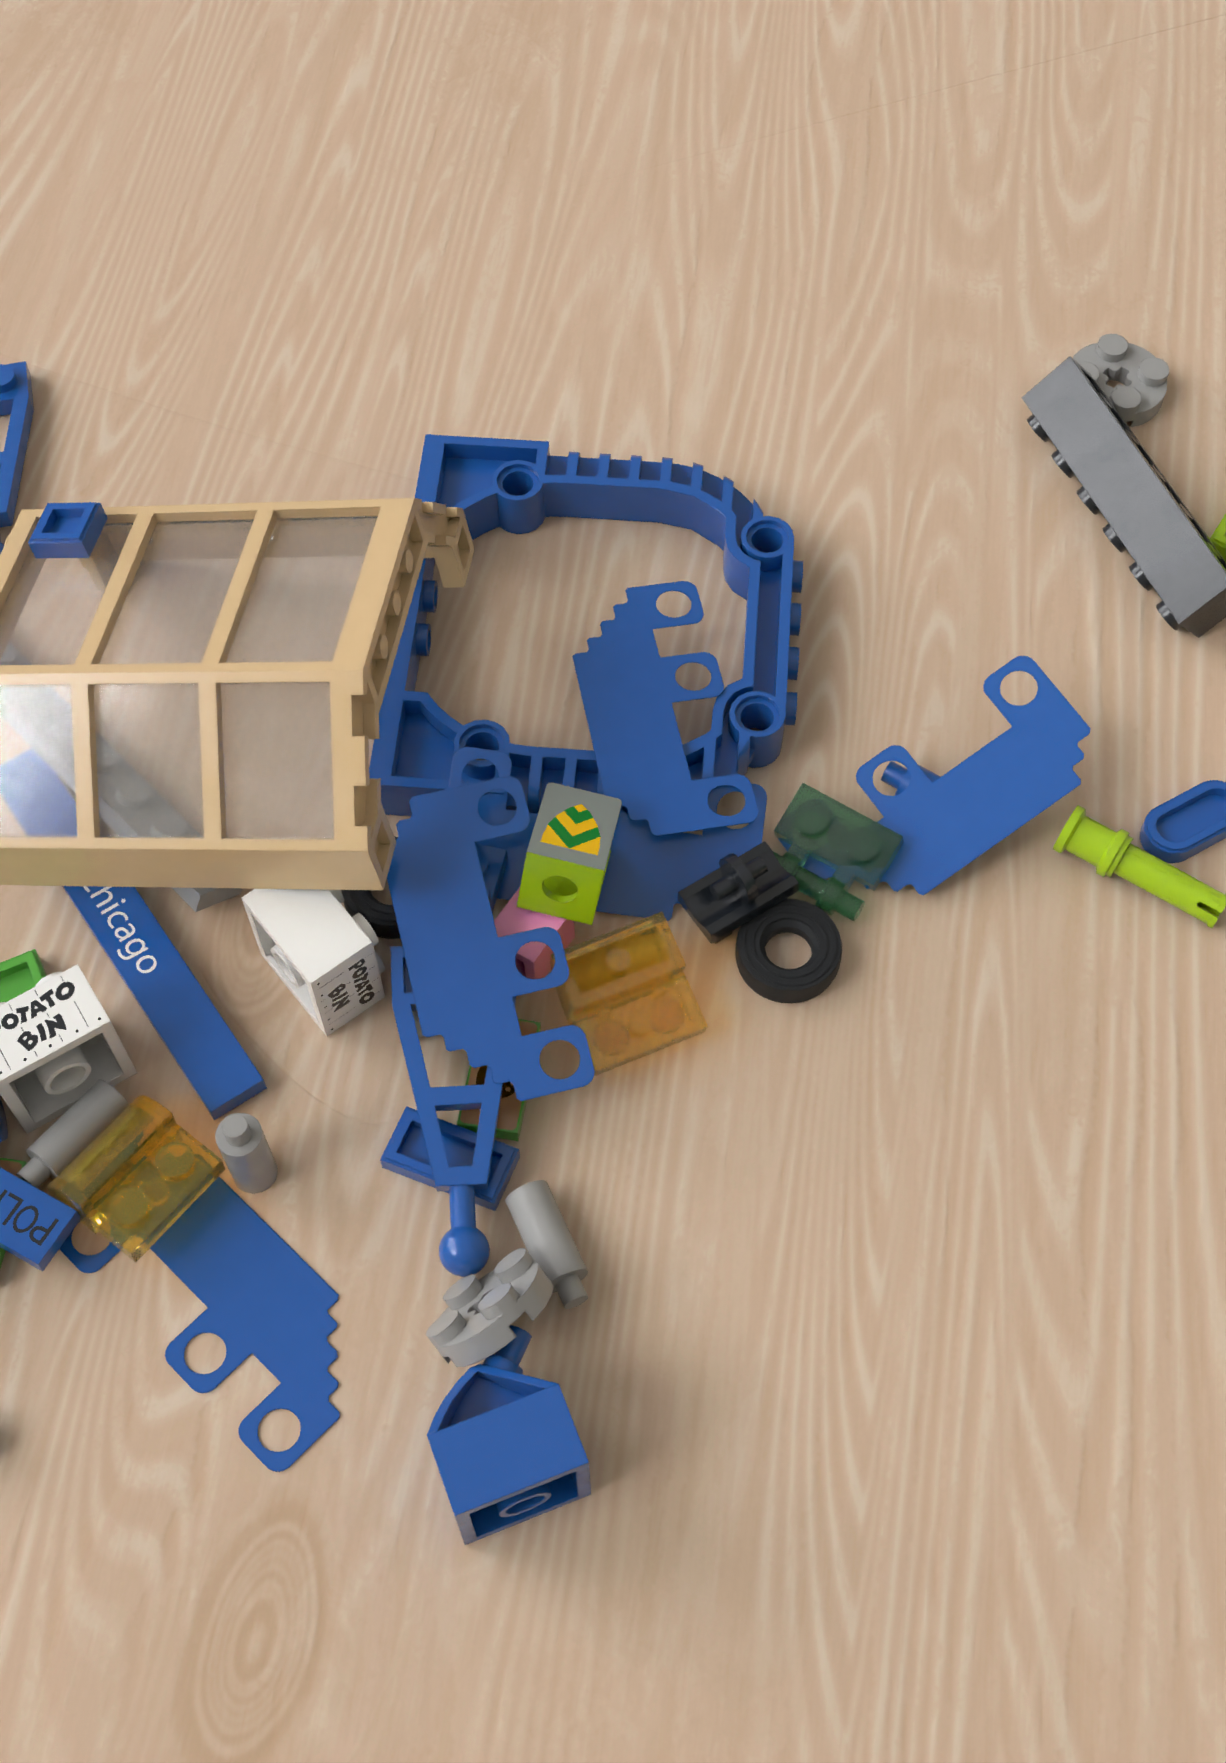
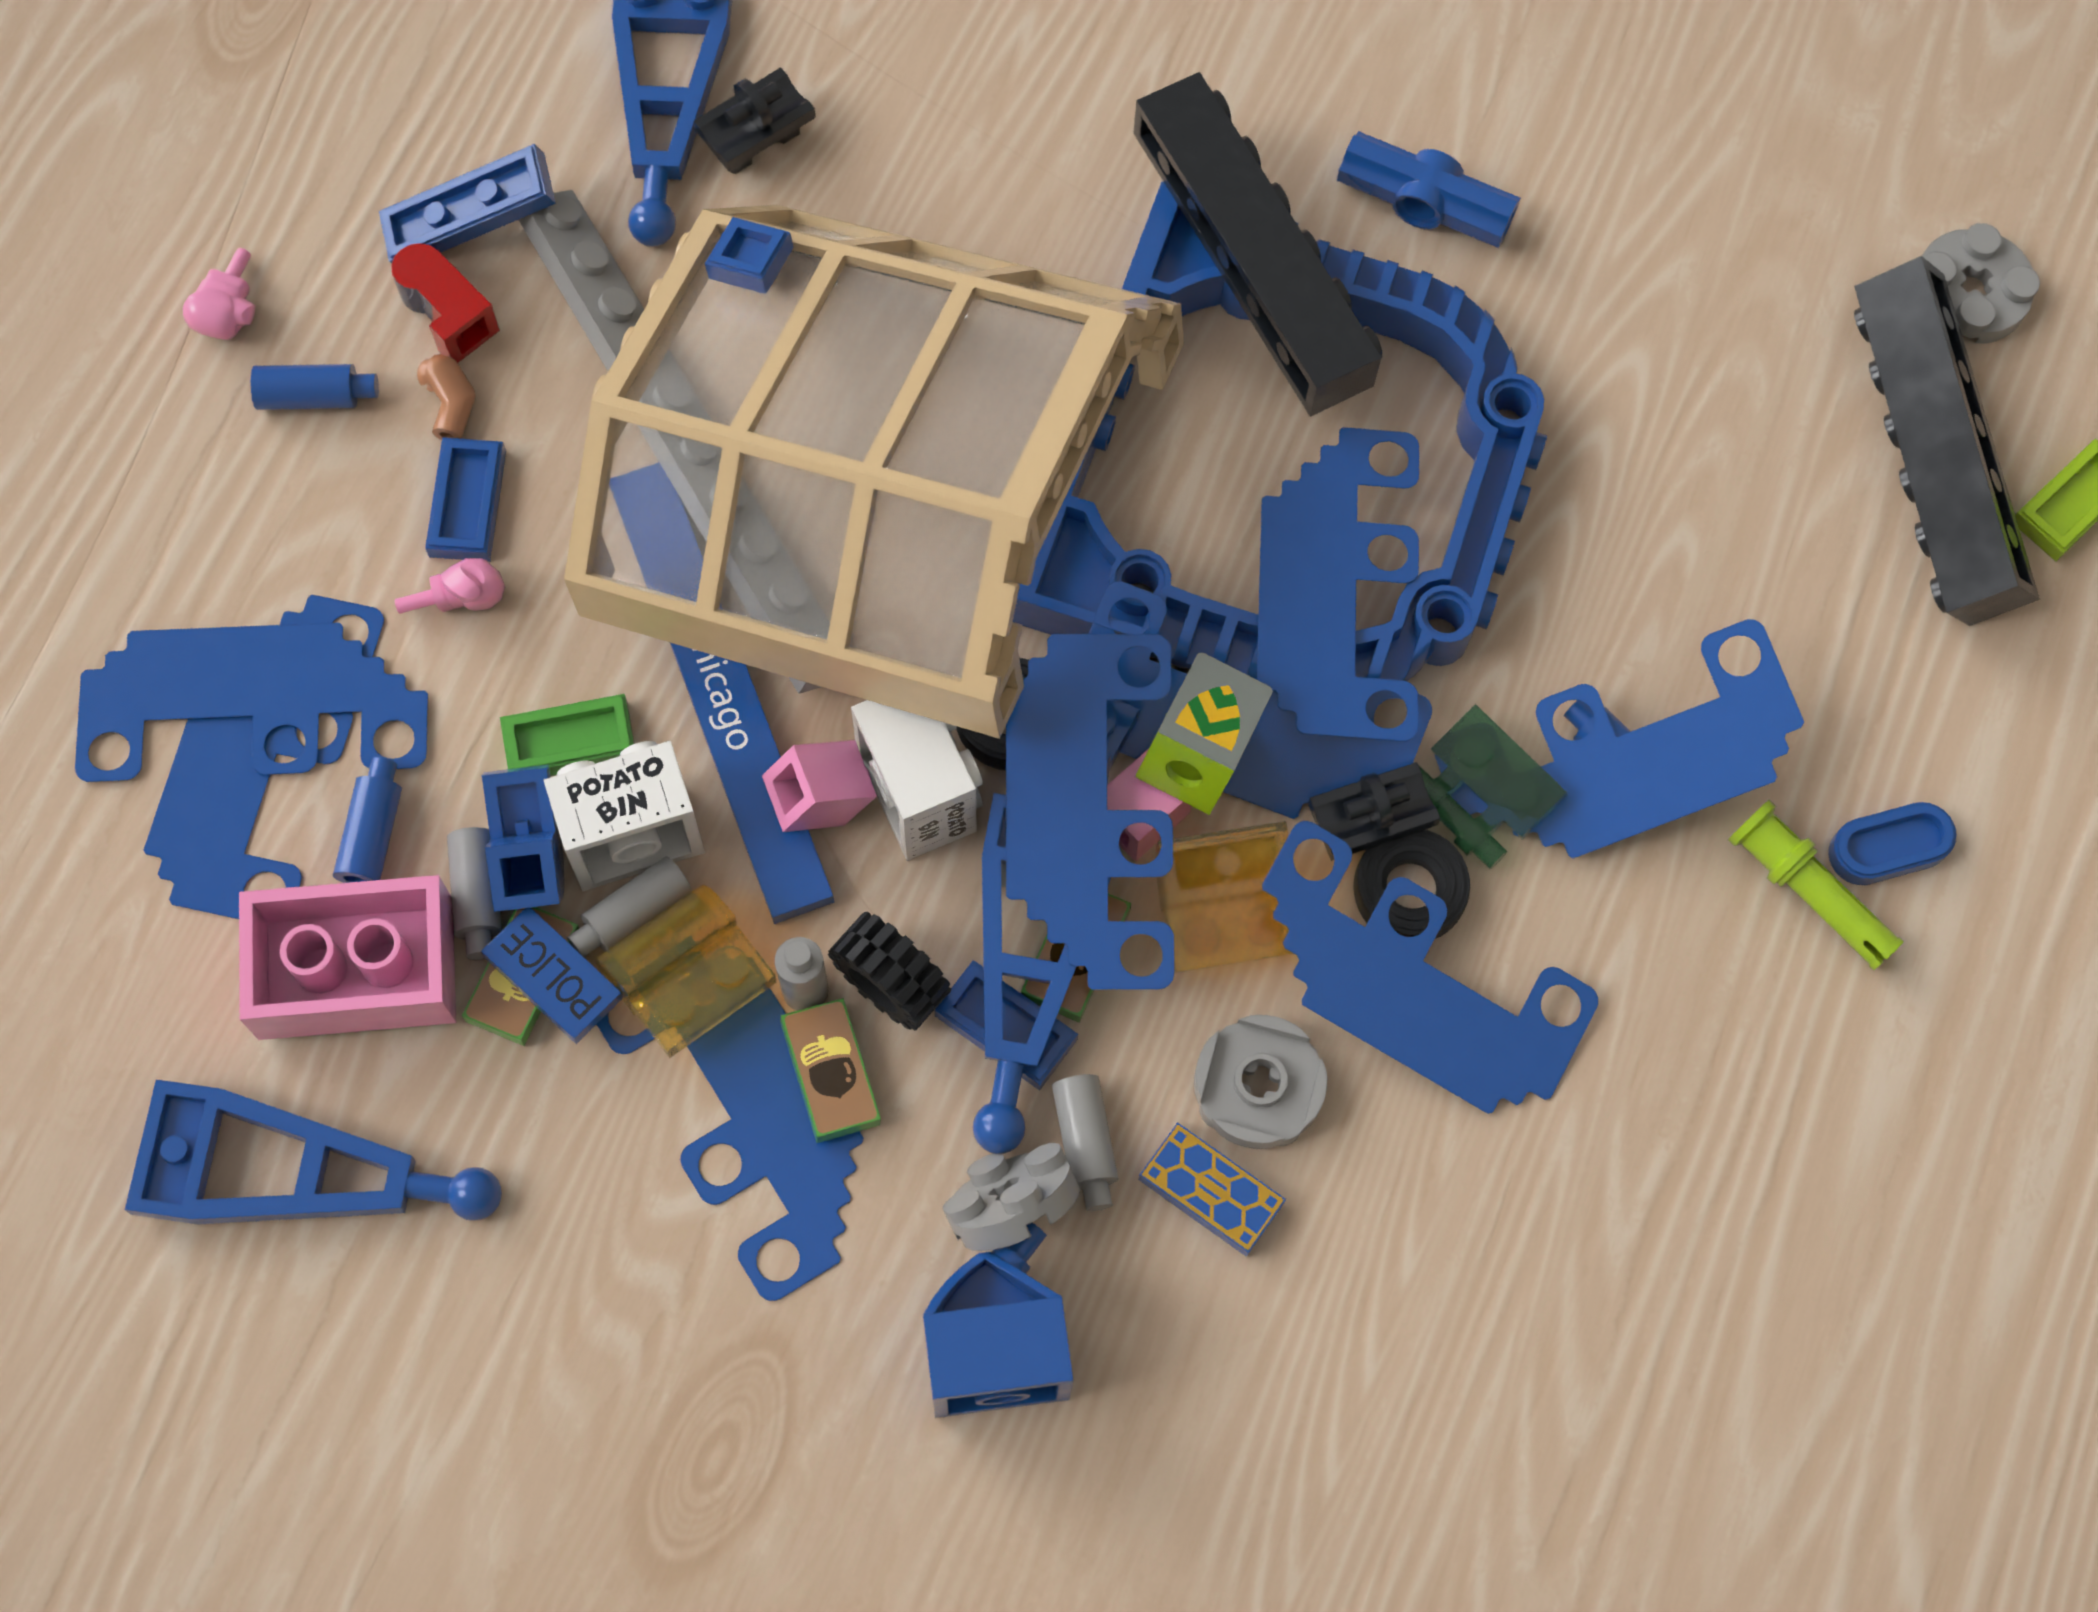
camera: 10 degrees right, 10 degrees up
(65, 461) = (754, 119): none -> black hips
(229, 983) = (819, 785): none -> bright pink brick
(293, 1238) = (830, 1070): none -> tile
(329, 1129) = (889, 970): none -> black tyre
(519, 459) = (1257, 243): none -> black brick
(651, 401) = (1428, 189): none -> blue piece
(677, 1260) = (1211, 1189): none -> blue tile
(697, 1187) = (1292, 1063): none -> light grey plate
(794, 1047) = (1399, 1004): none -> blue piece

